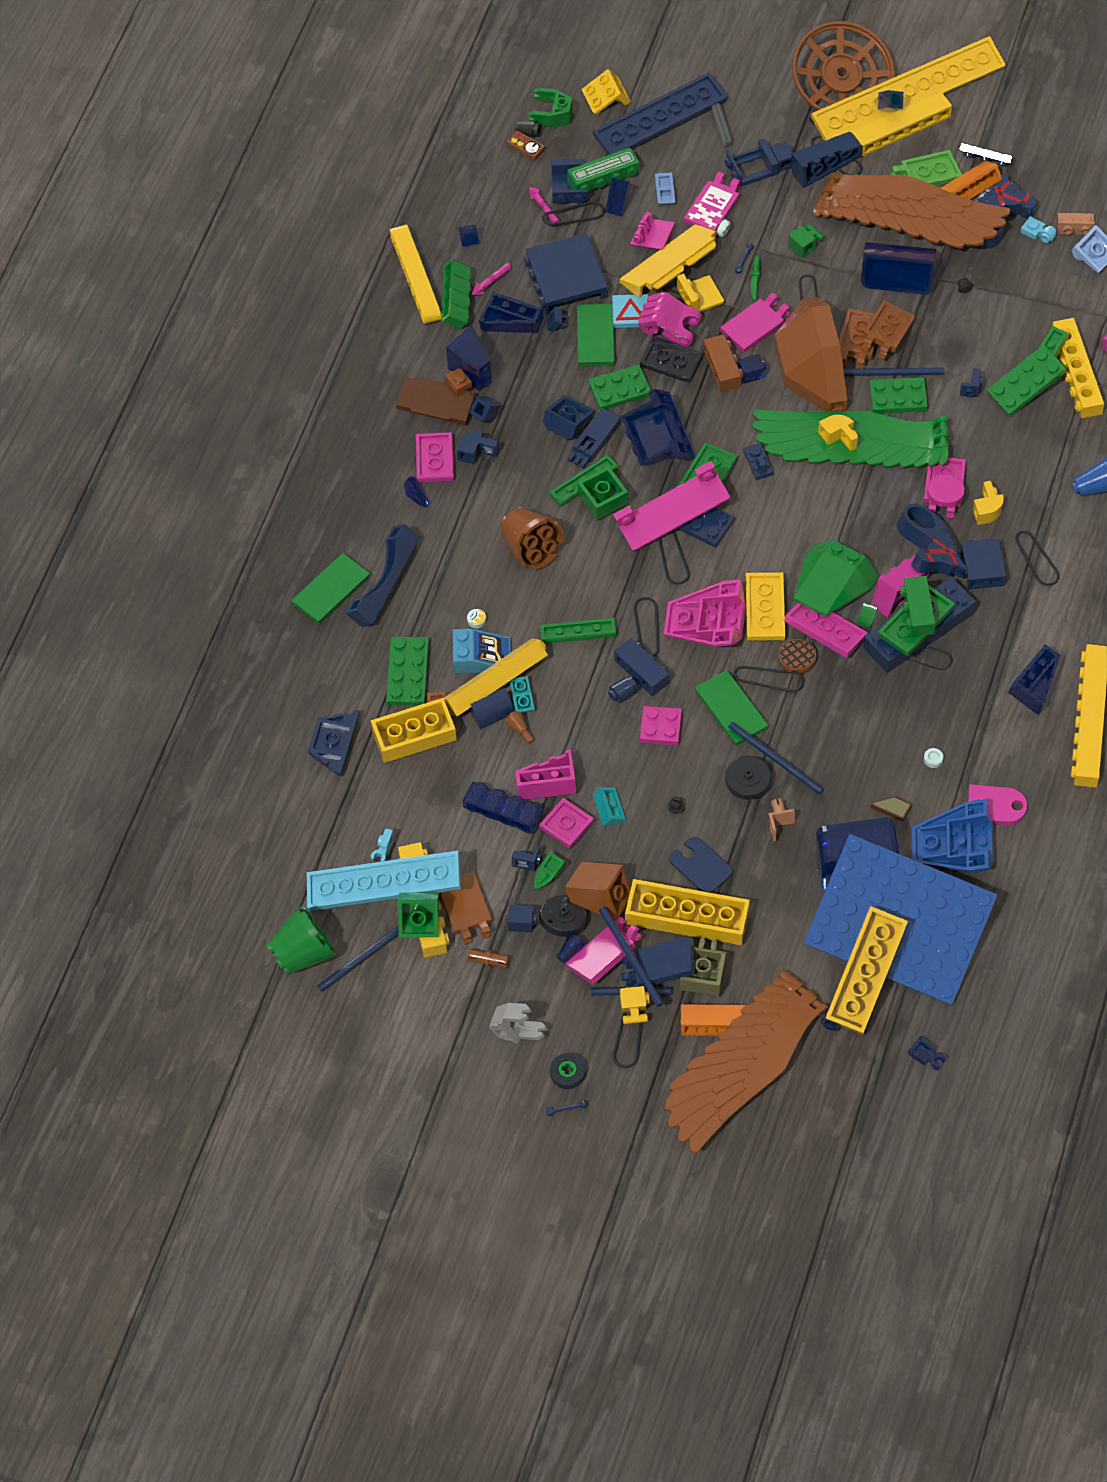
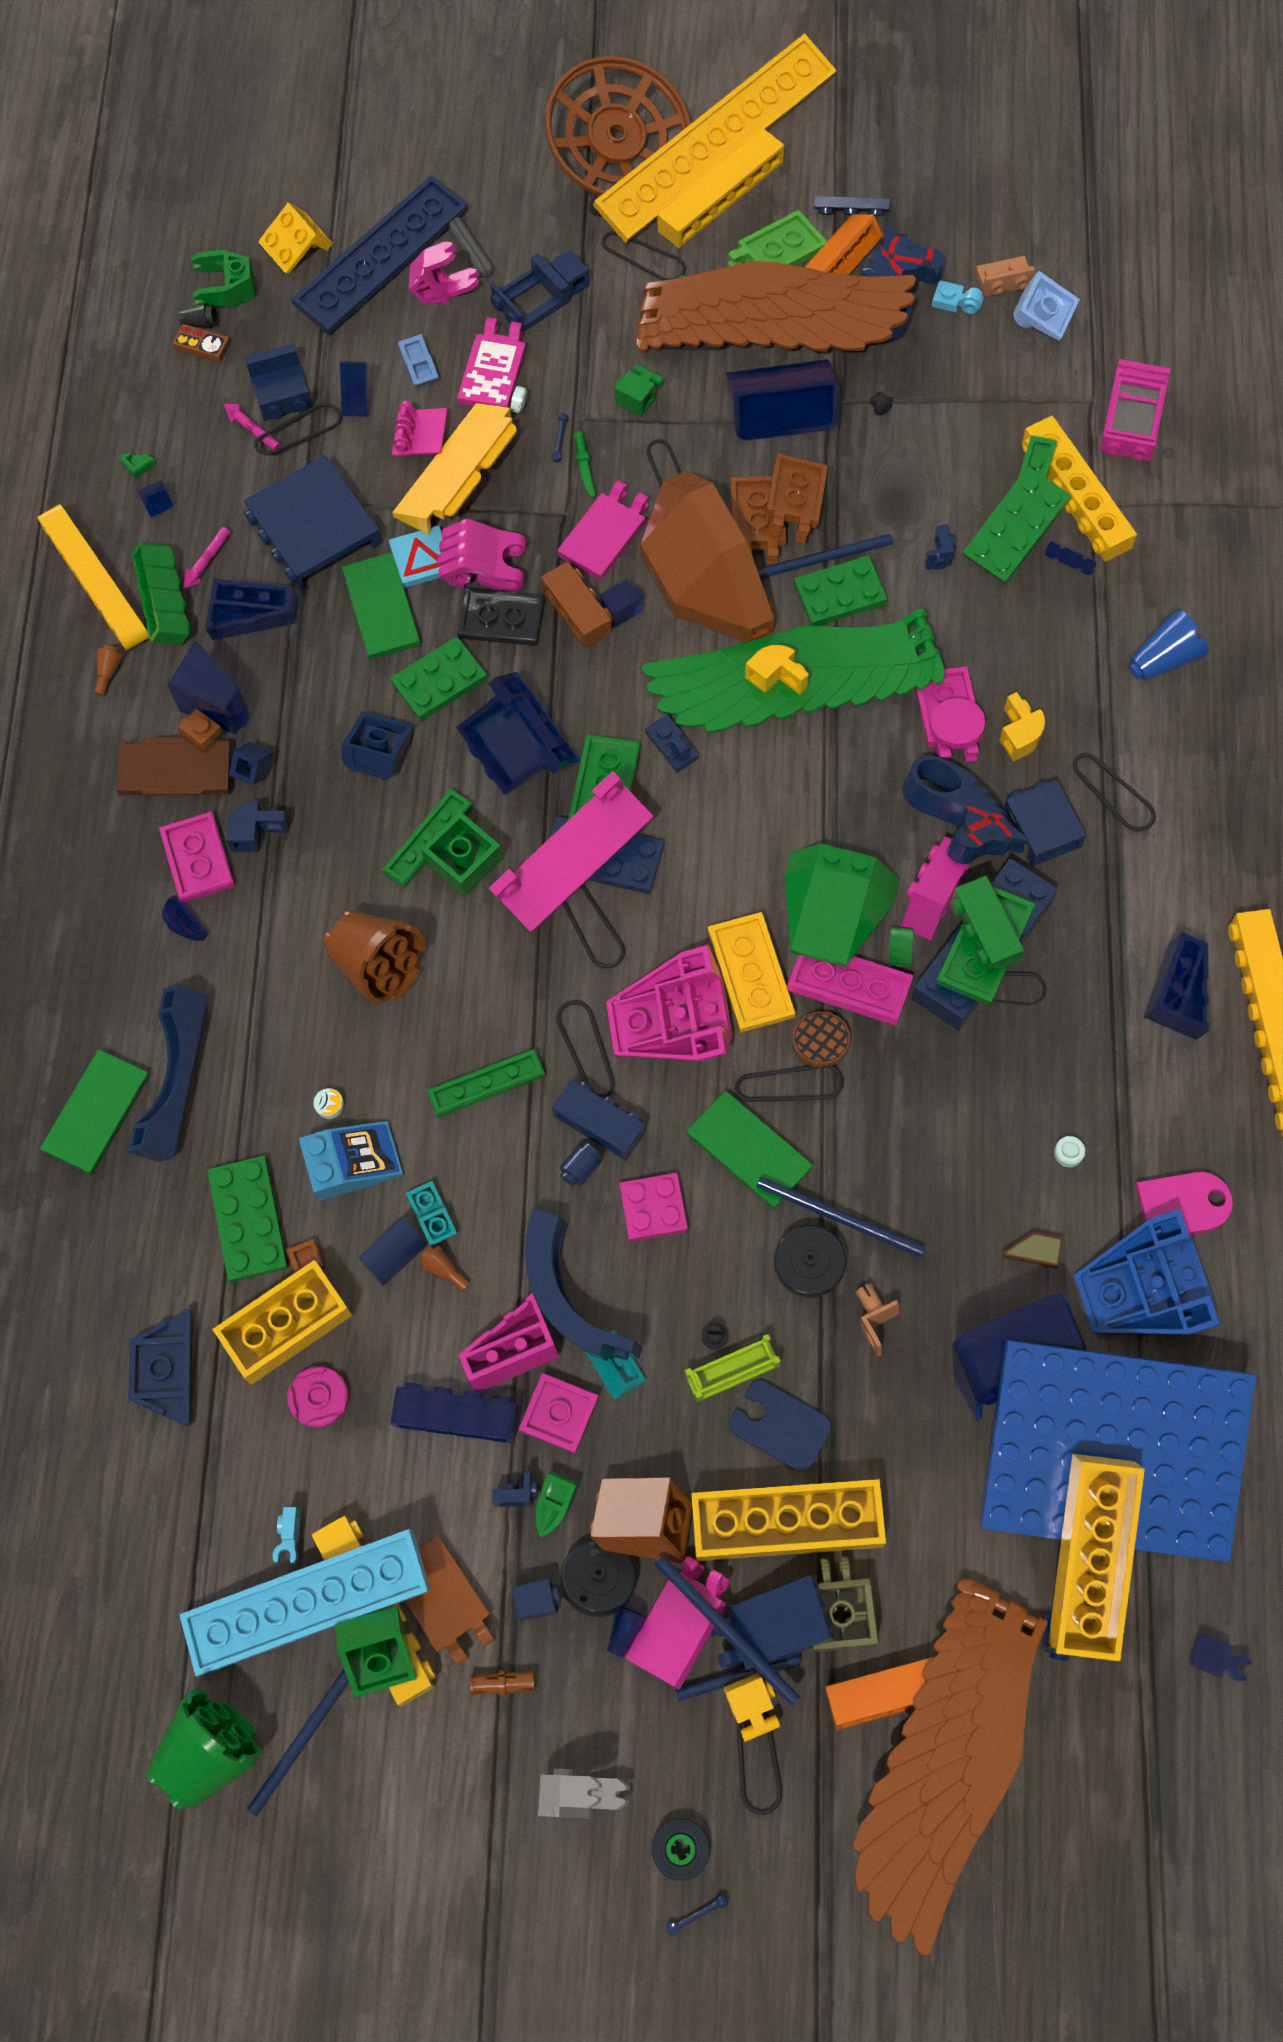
camera: 15 degrees left, 10 degrees up
(410, 327) = (107, 662): none -> dark orange cone
(422, 779) = (318, 1397): none -> dark pink tile
(462, 212) = (137, 463): none -> green tile
(495, 676) = (383, 1197): yellow brick -> none
(555, 319) = (316, 596): dark blue tile -> none
(582, 738) = (543, 1269): none -> dark blue arch
(600, 430) = (426, 754): dark blue hinge -> none
(602, 170) = (322, 354): green brick -> none
(680, 825) = (732, 1369): none -> lime container
(689, 142) = (431, 283): none -> dark pink piece
(700, 293) = (512, 506): yellow bracket -> none
(824, 158) = (630, 262): dark blue wedge -> none
(890, 100) = (699, 156): brick -> none
(1058, 410) = (1070, 558): none -> clear blue axle

